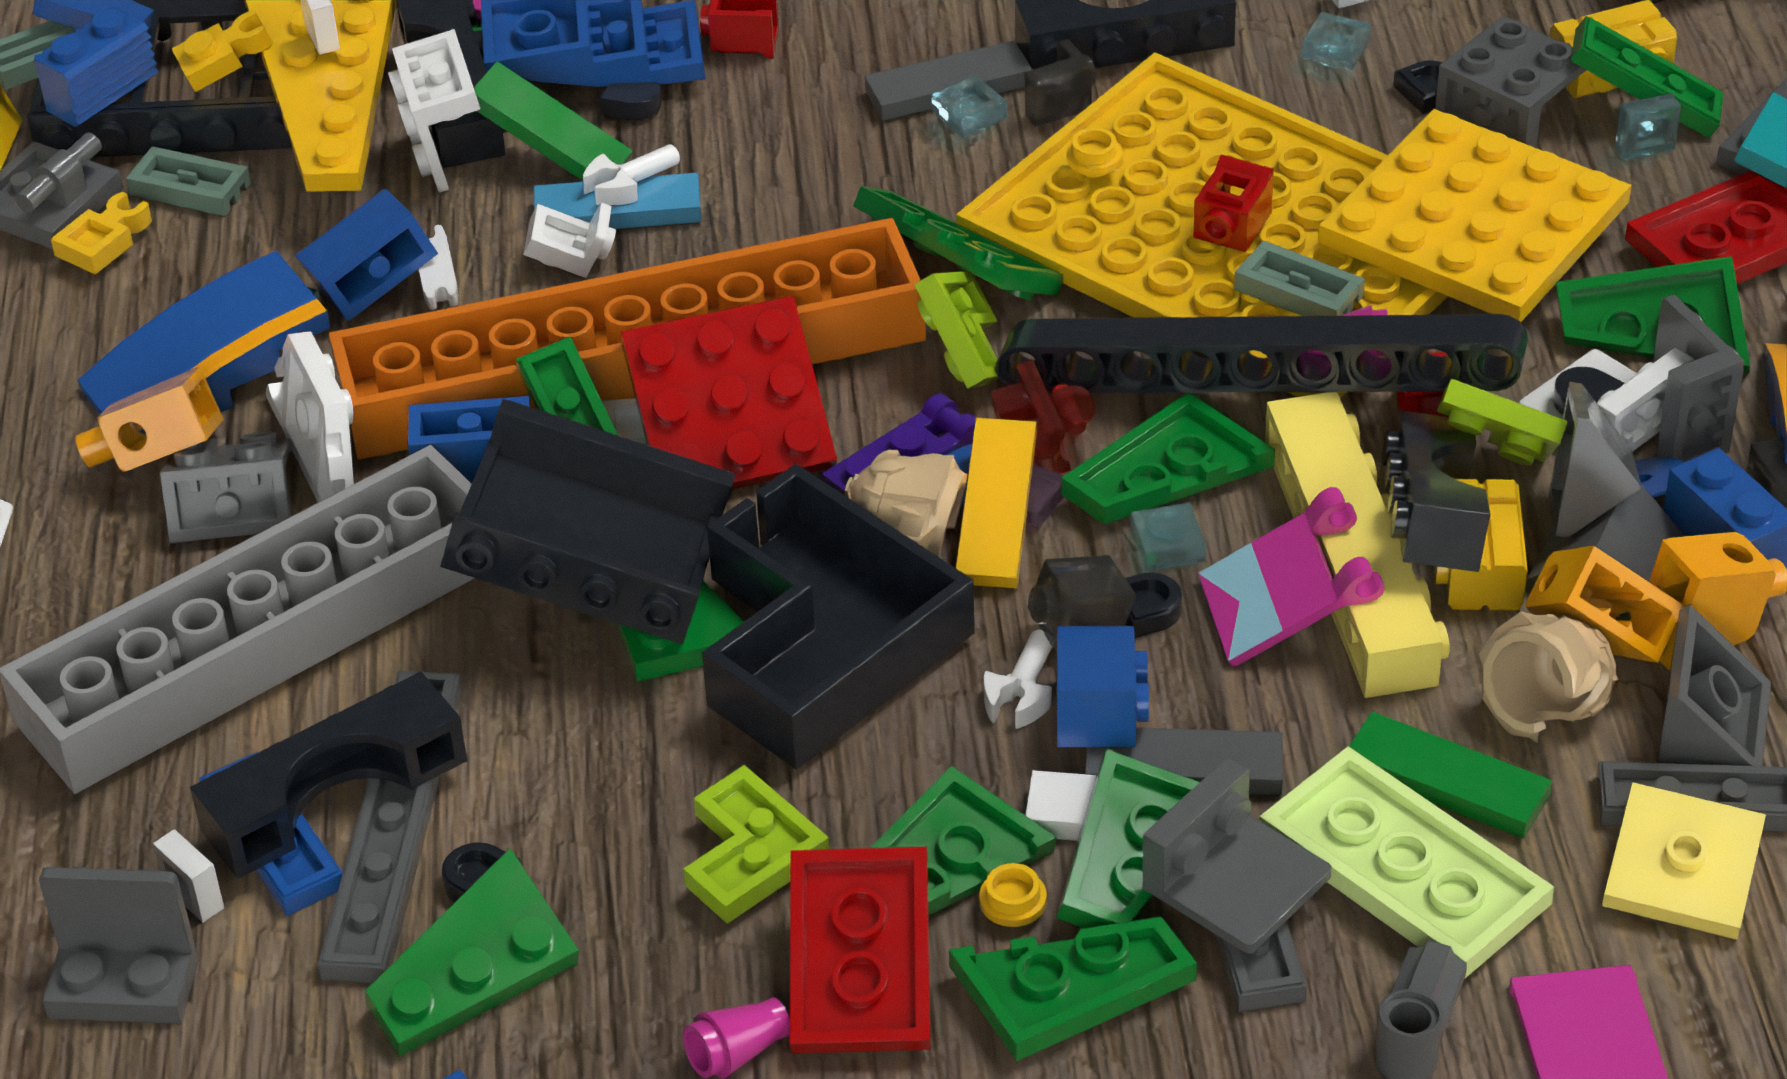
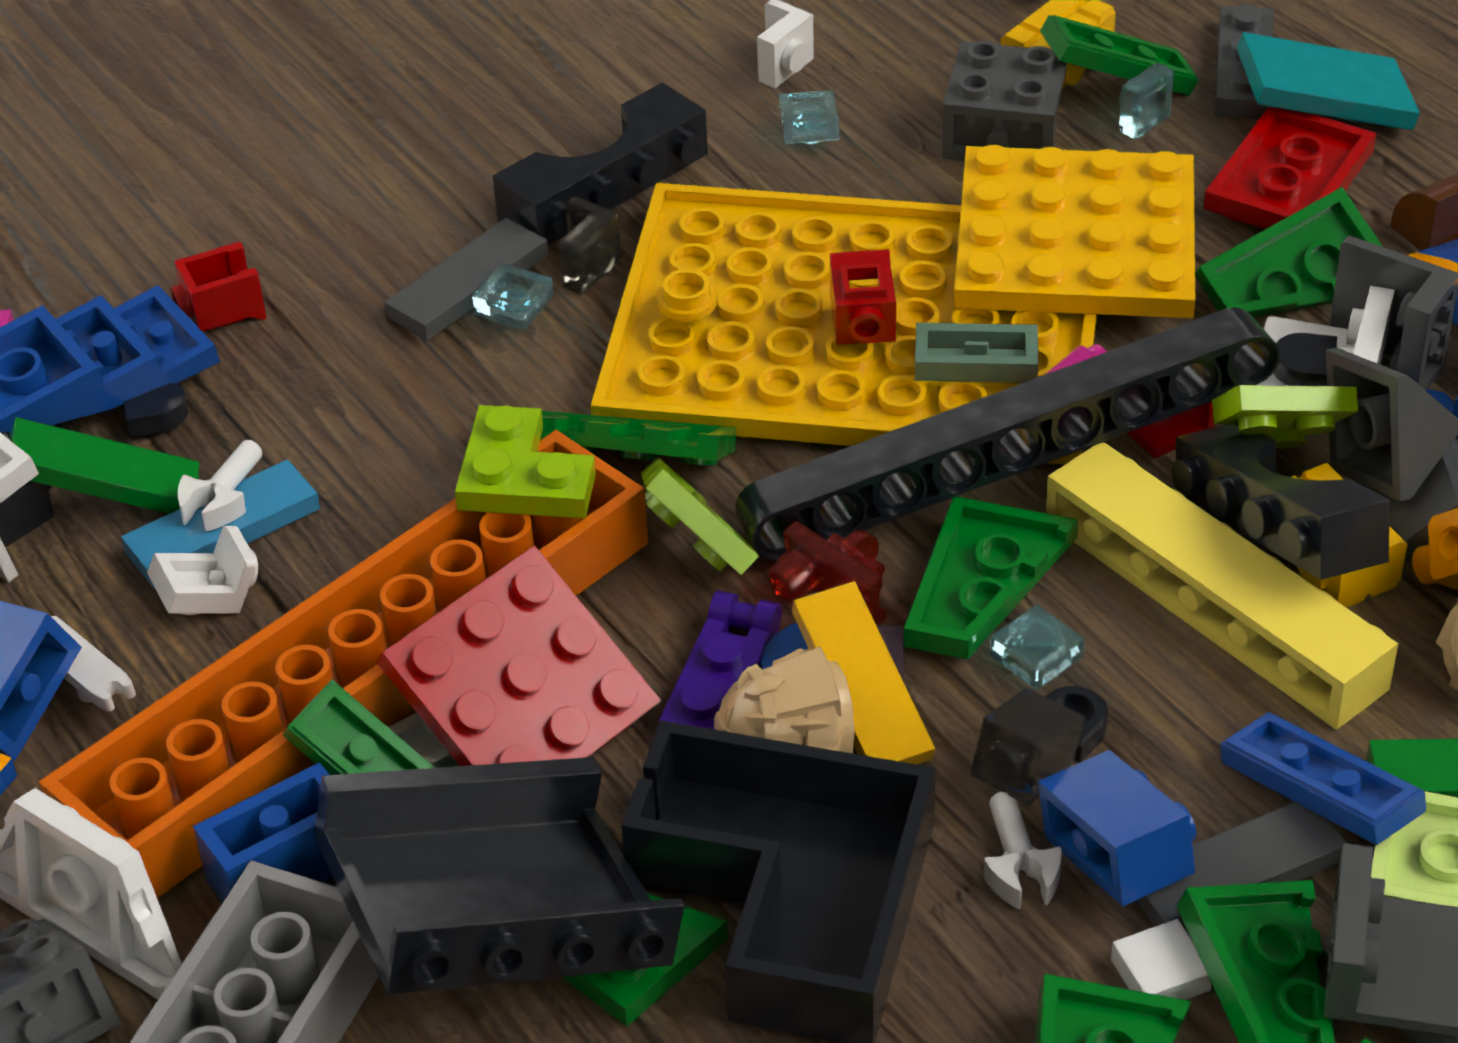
camera: 30 degrees left, 0 degrees up
(830, 237) = (510, 476): none -> lime plate
(1285, 582) = (1194, 652): dark pink flag -> none
(1300, 720) = (1323, 778): none -> blue tile
(1419, 84) = (915, 130): black tile -> none

